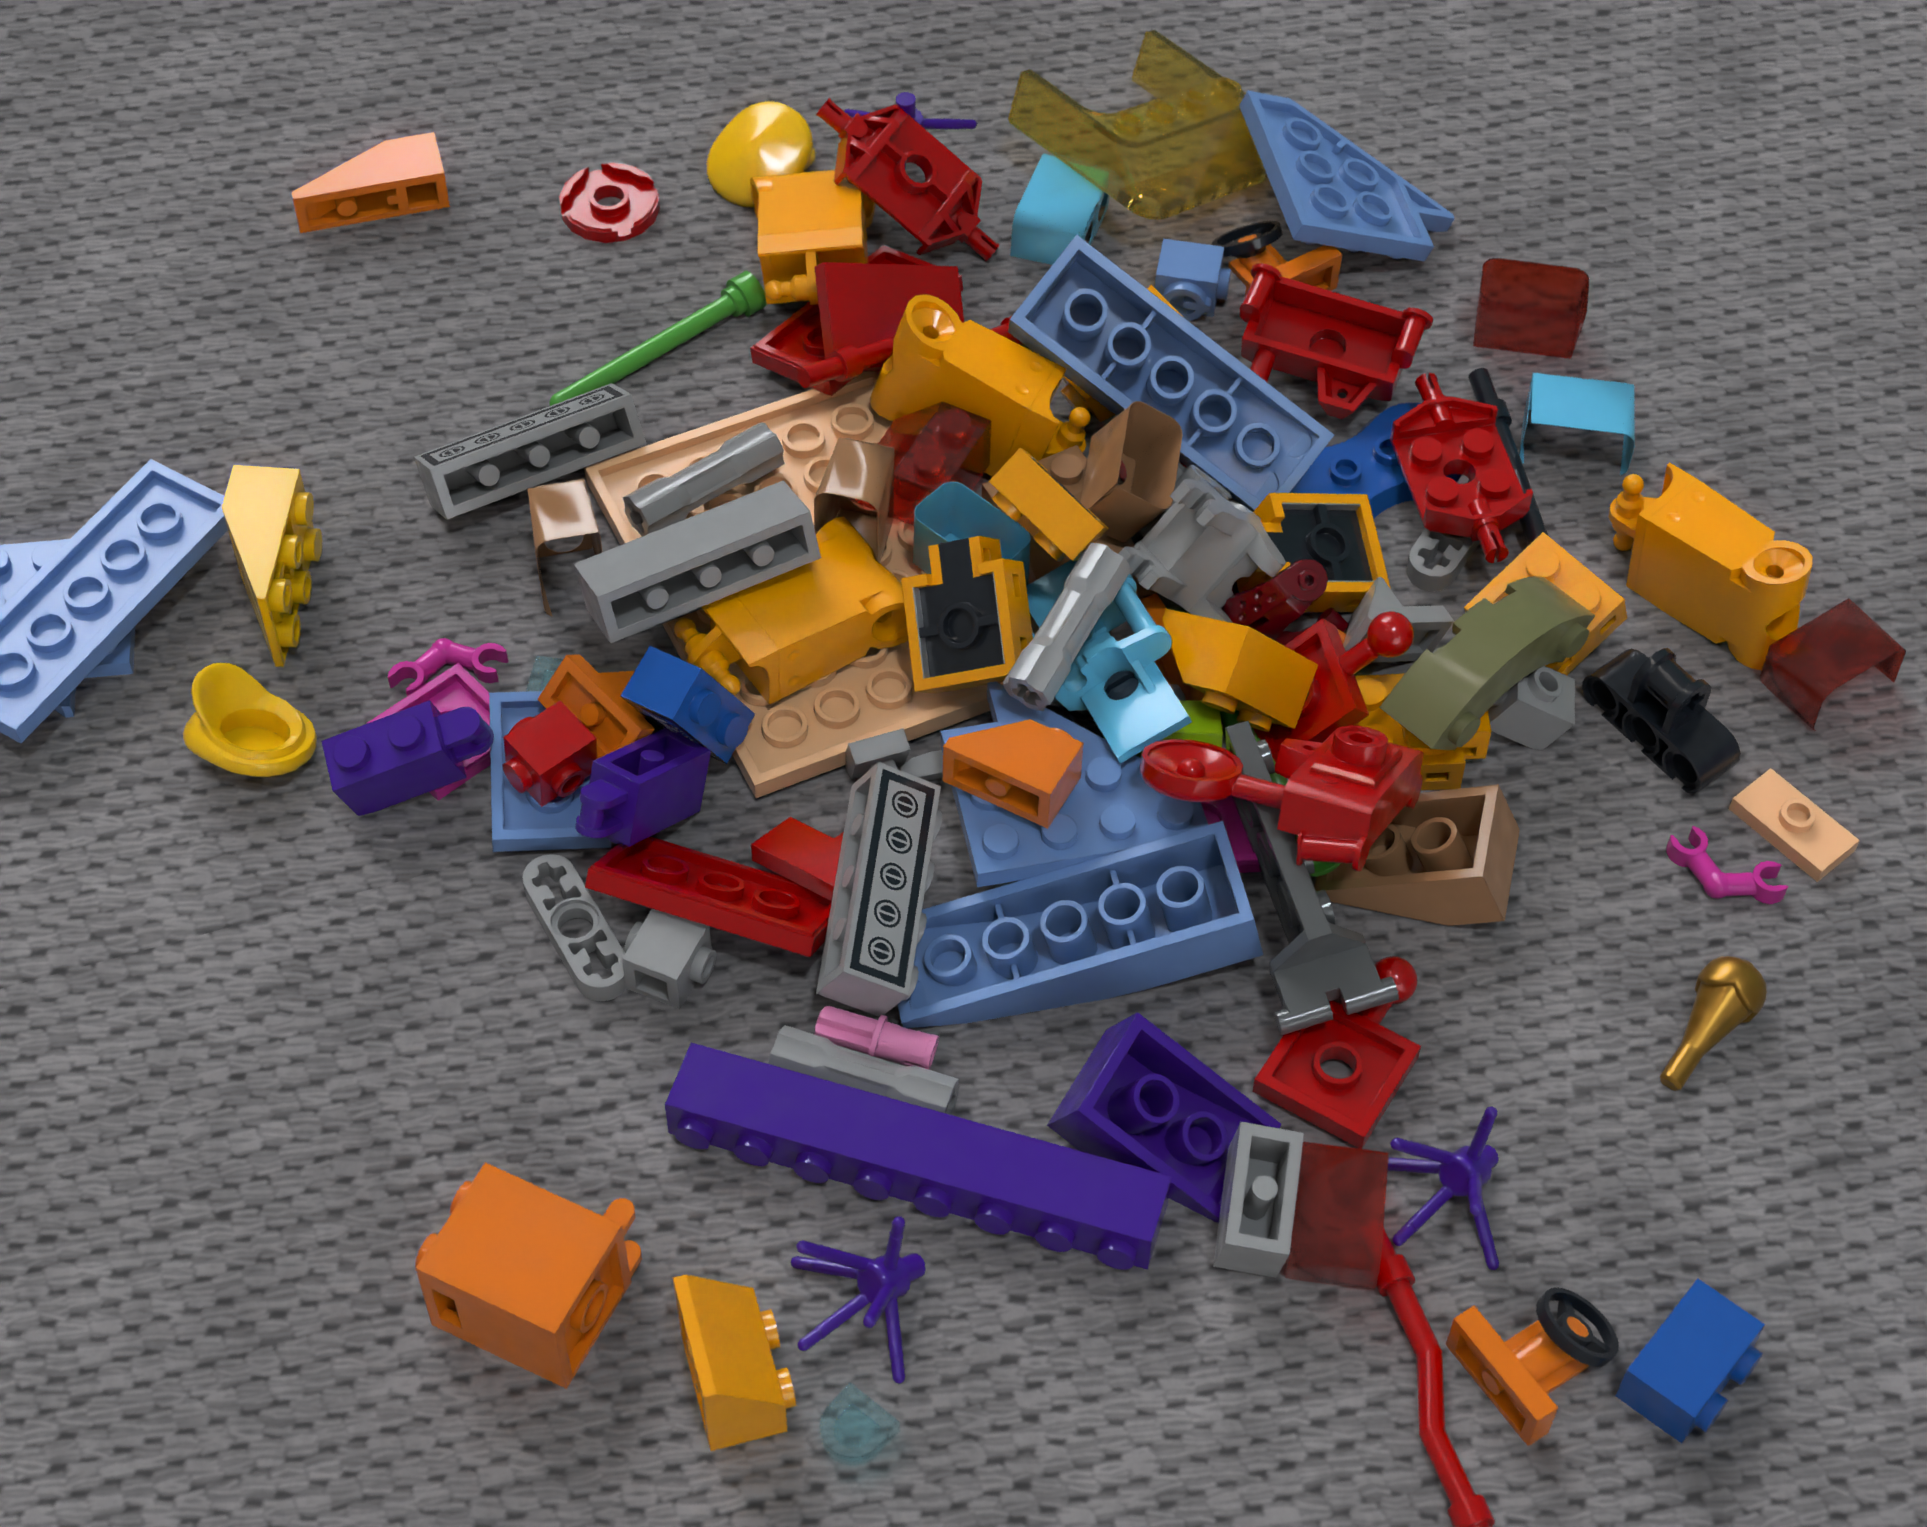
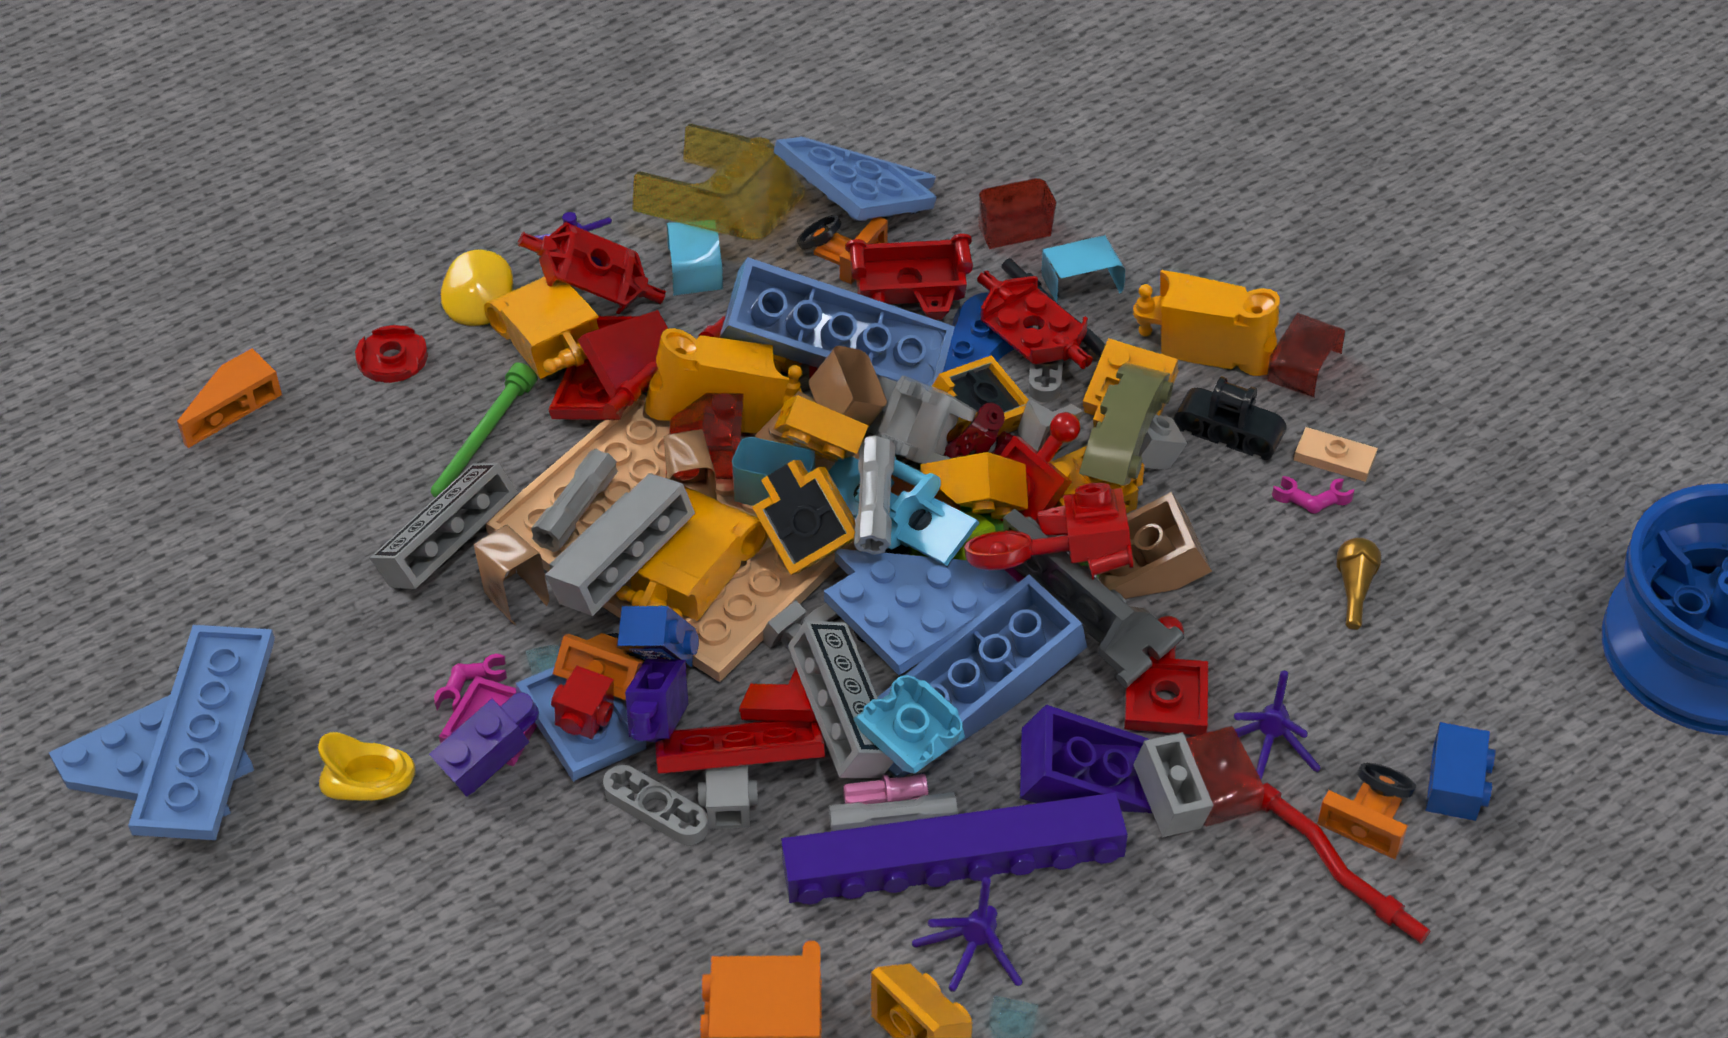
camera: 25 degrees left, 5 degrees down
(273, 548) = (311, 653): yellow slope -> none
(939, 962) = (911, 723): none -> medium azure slope
(1016, 767) = (890, 591): orange slope -> none
(1192, 277) = (801, 259): medium blue brick -> none

